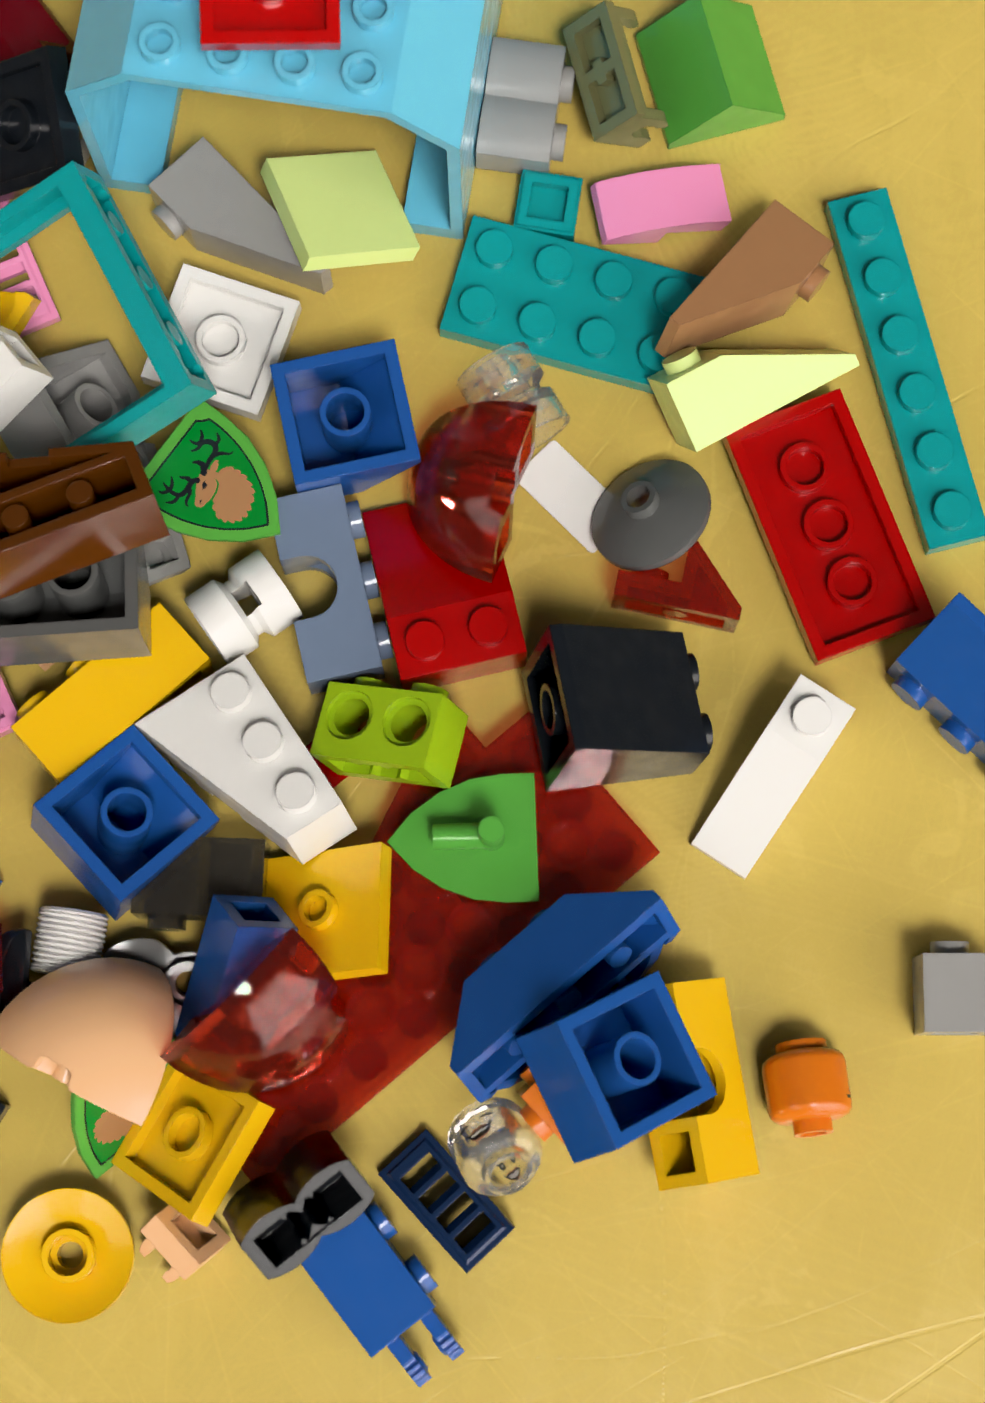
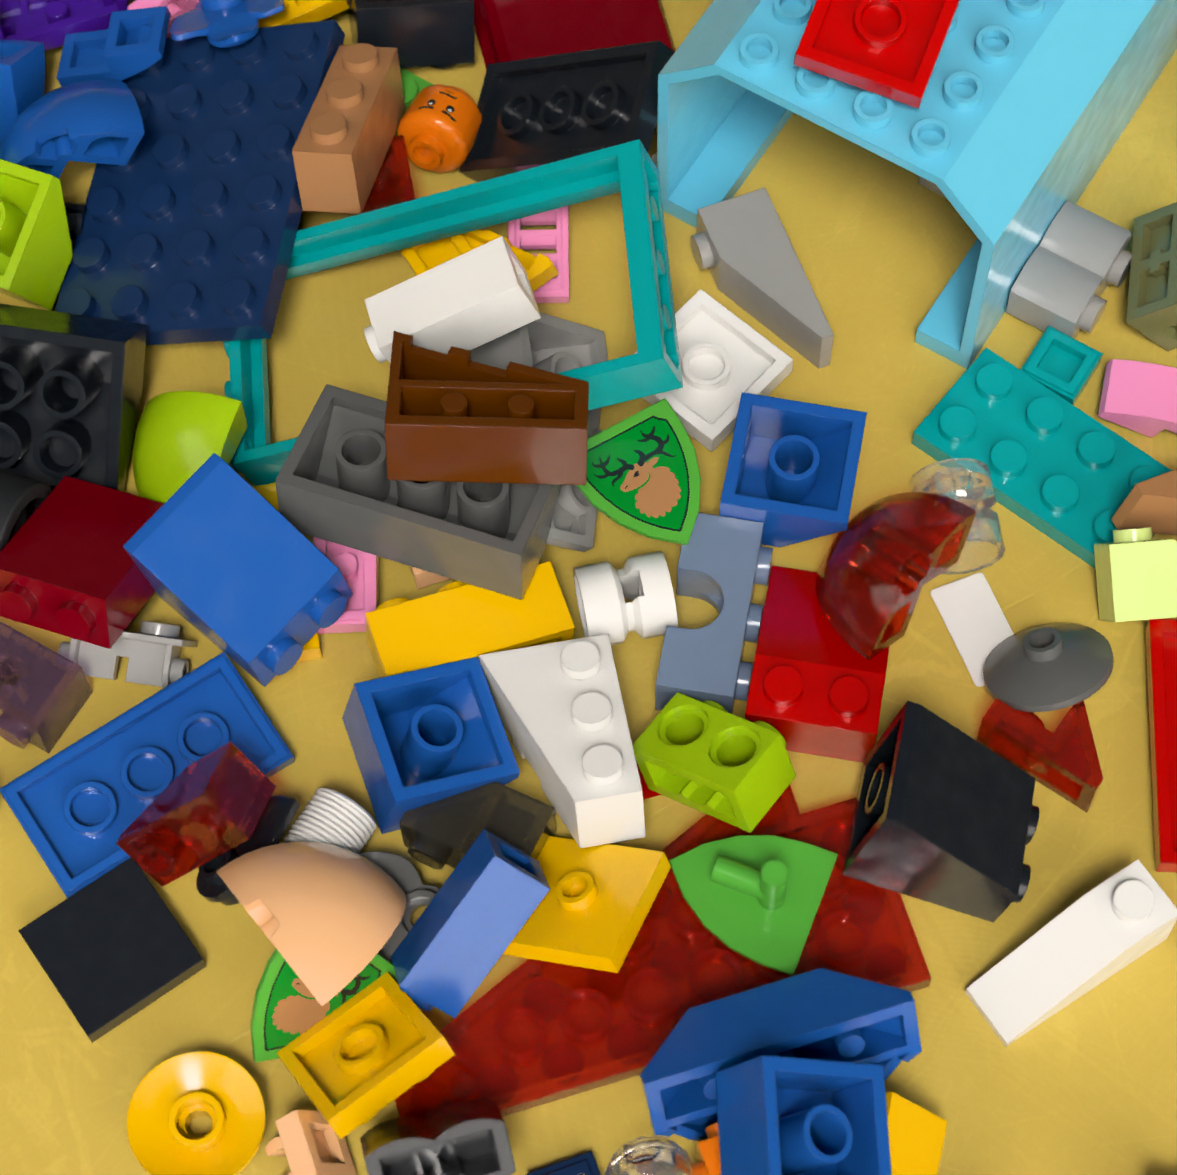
camera: 25 degrees right, 15 degrees down
(267, 1026) = (481, 964): clear red brick -> none
(339, 210) = (863, 294): yellowish green tile -> none

